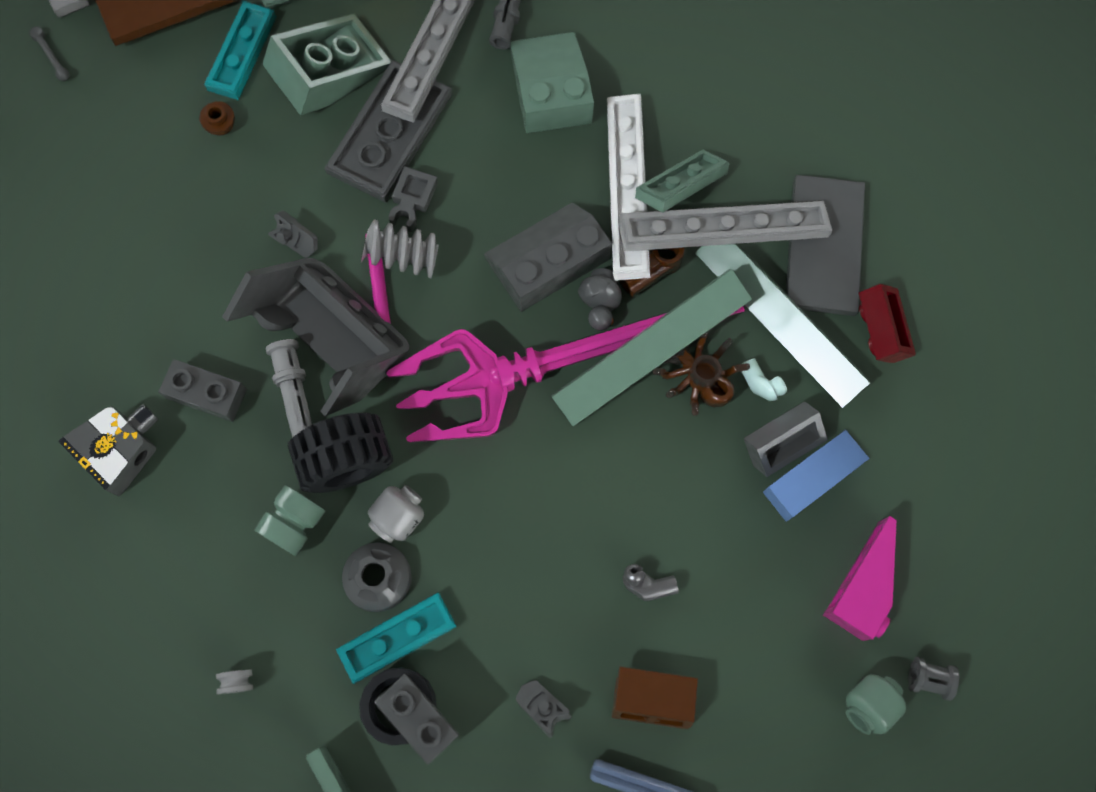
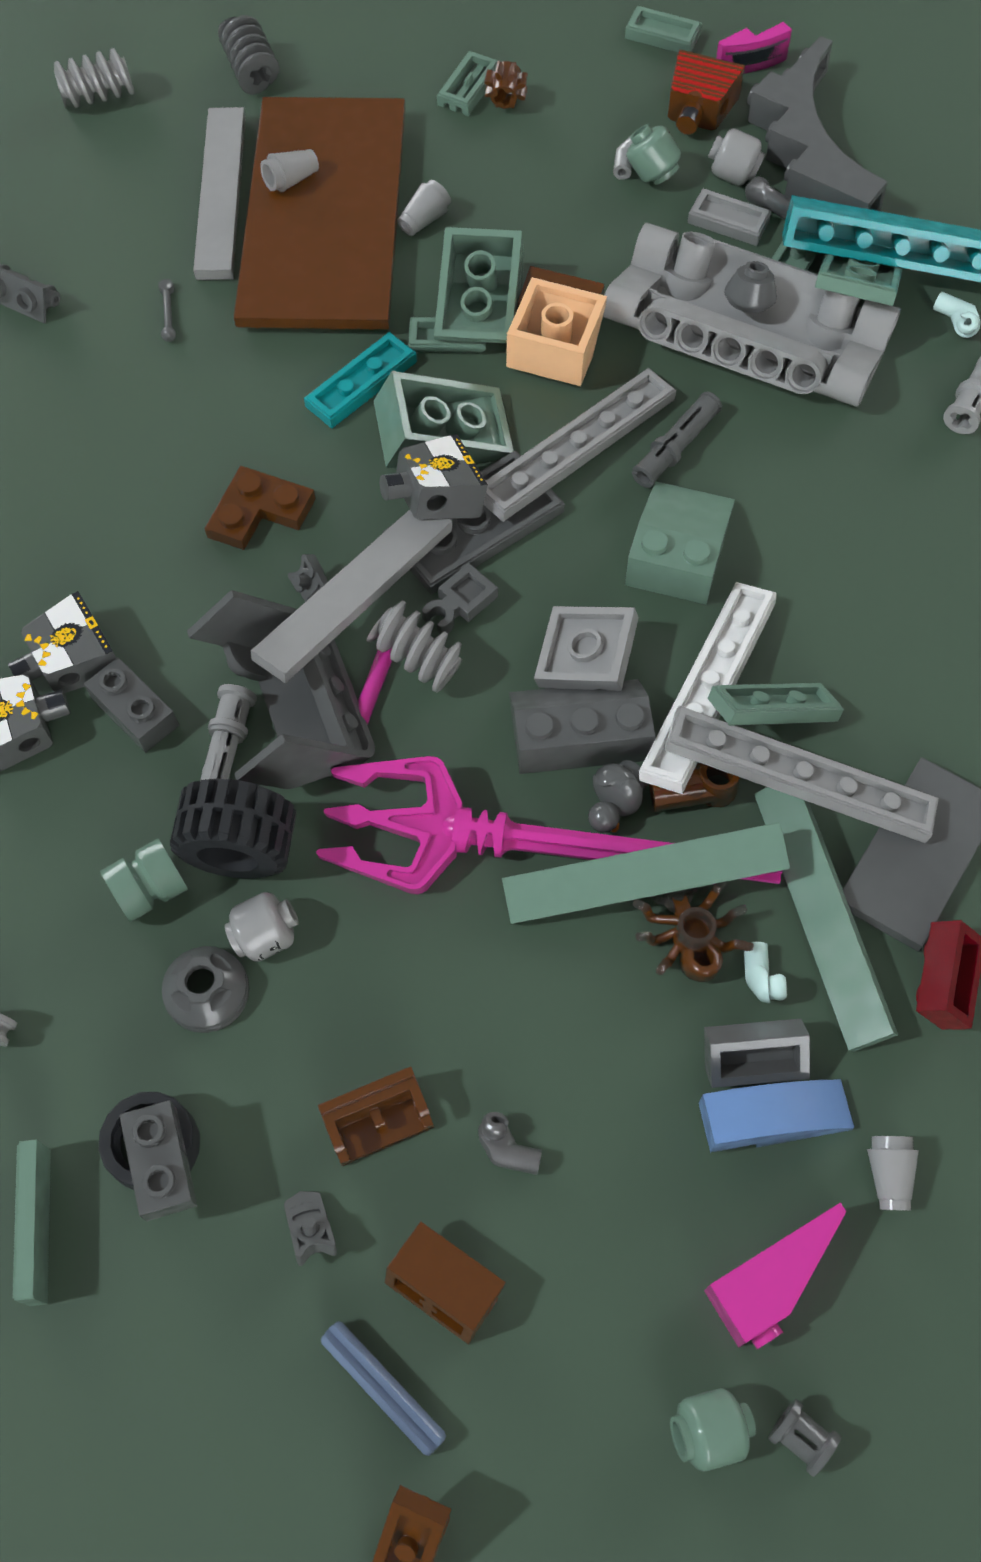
camera: 30 degrees right, 10 degrees down
(125, 369) = (64, 646): none -> torso
(208, 182) = (253, 498): none -> reddish brown plate
(217, 126) = (299, 445): reddish brown plate -> none
(330, 229) = (348, 595): none -> light grey tile
(350, 111) = (437, 480): none -> dark grey torso
(396, 638) = (190, 1066): teal tile -> none
(526, 195) = (586, 648): none -> light grey hinge
(549, 608) = (376, 1116): none -> reddish brown hinge
(909, 475) = (893, 1170): none -> light grey cone

